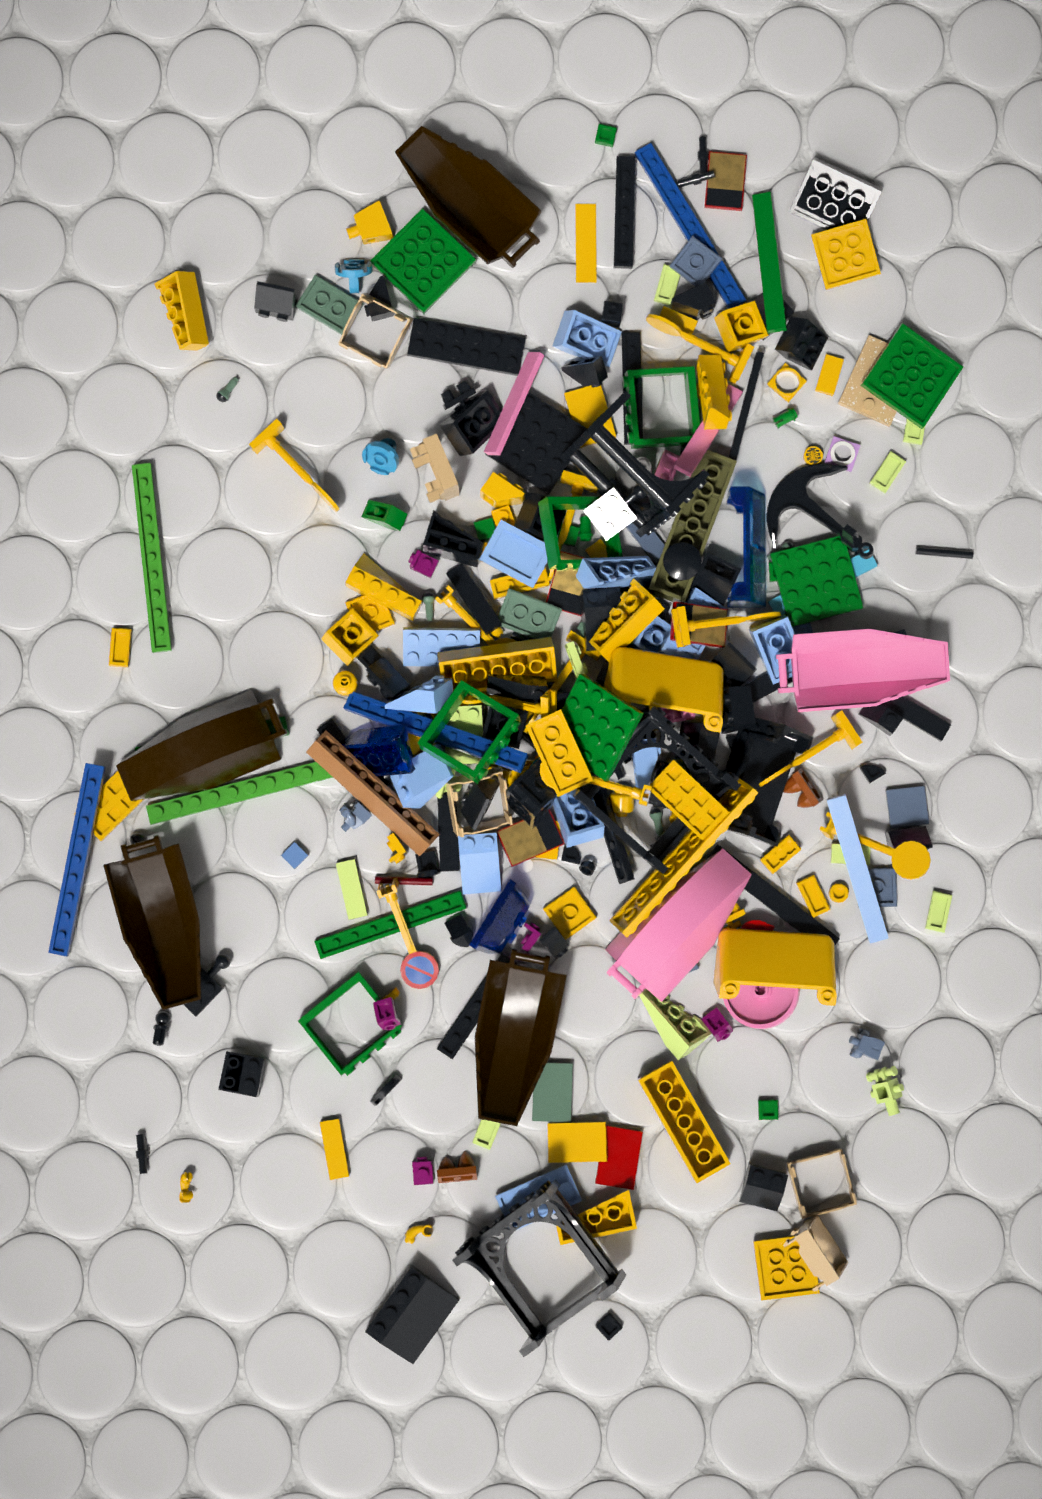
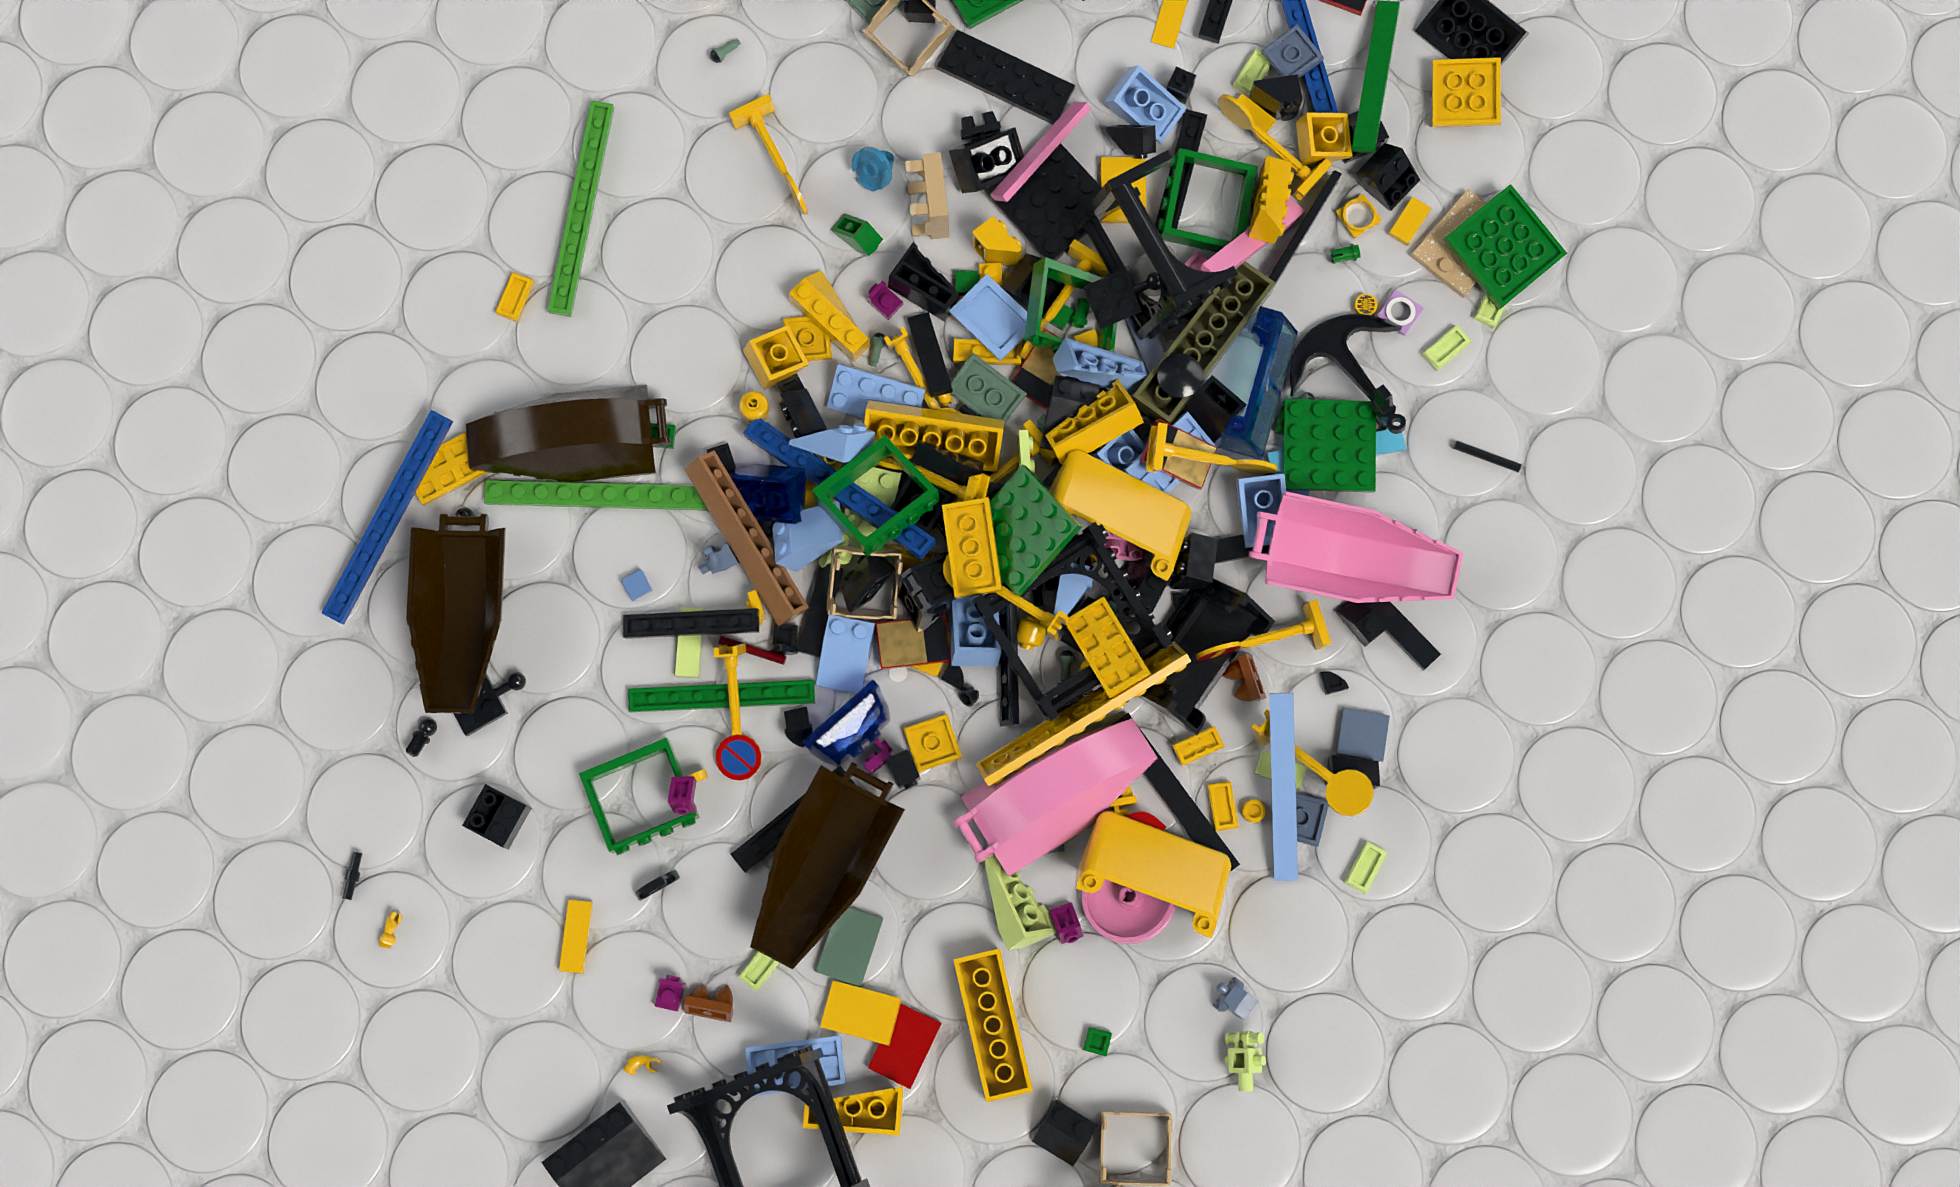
camera: 20 degrees right, 5 degrees down
(349, 874) = (691, 623): none -> black tile
(734, 665) = (1207, 512): black slope -> none

